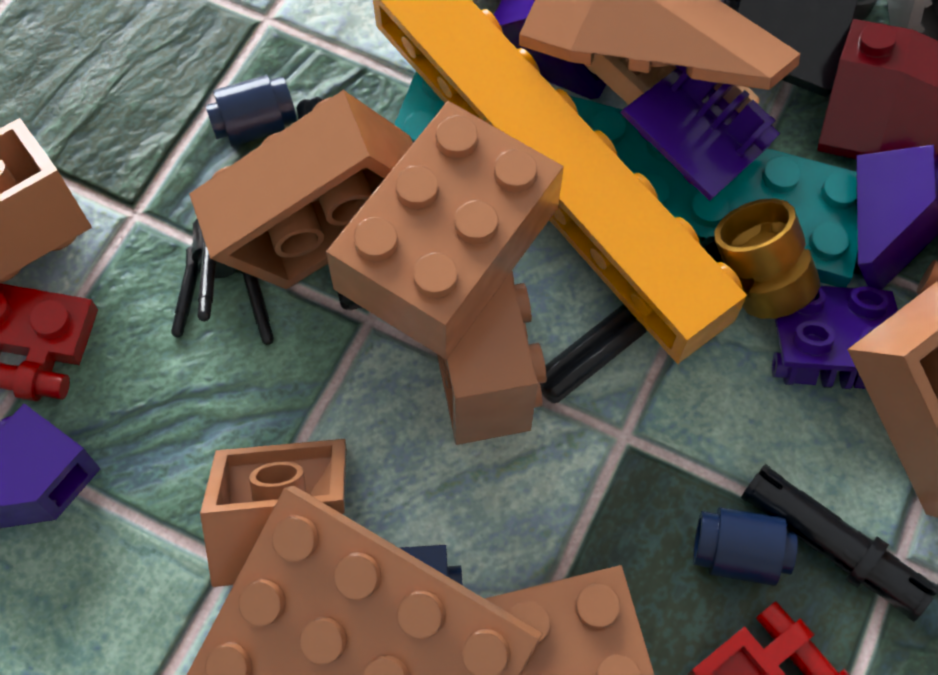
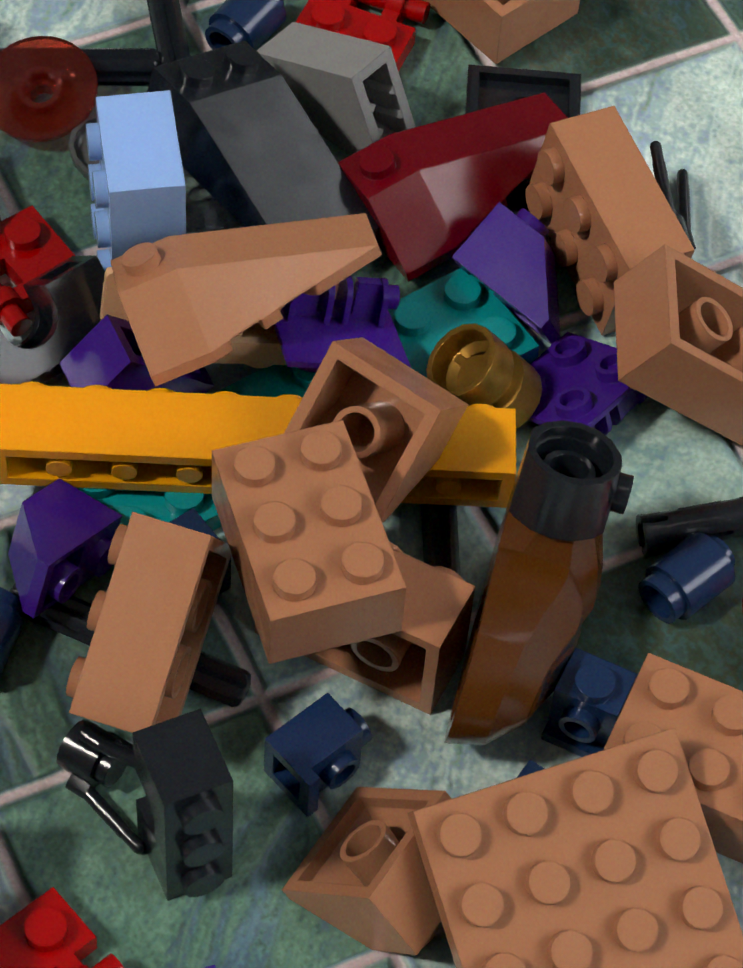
camera: 55 degrees left, 10 degrees down
(165, 317) = (186, 805): none -> black arch
(338, 386) = (315, 751): none -> dark blue brick
(367, 73) = (59, 545): none -> dark purple slope
(548, 548) = (587, 703): none -> dark blue brick
(596, 433) = (538, 579): none -> reddish brown piece
(619, 202) = (390, 414): none -> nougat slope

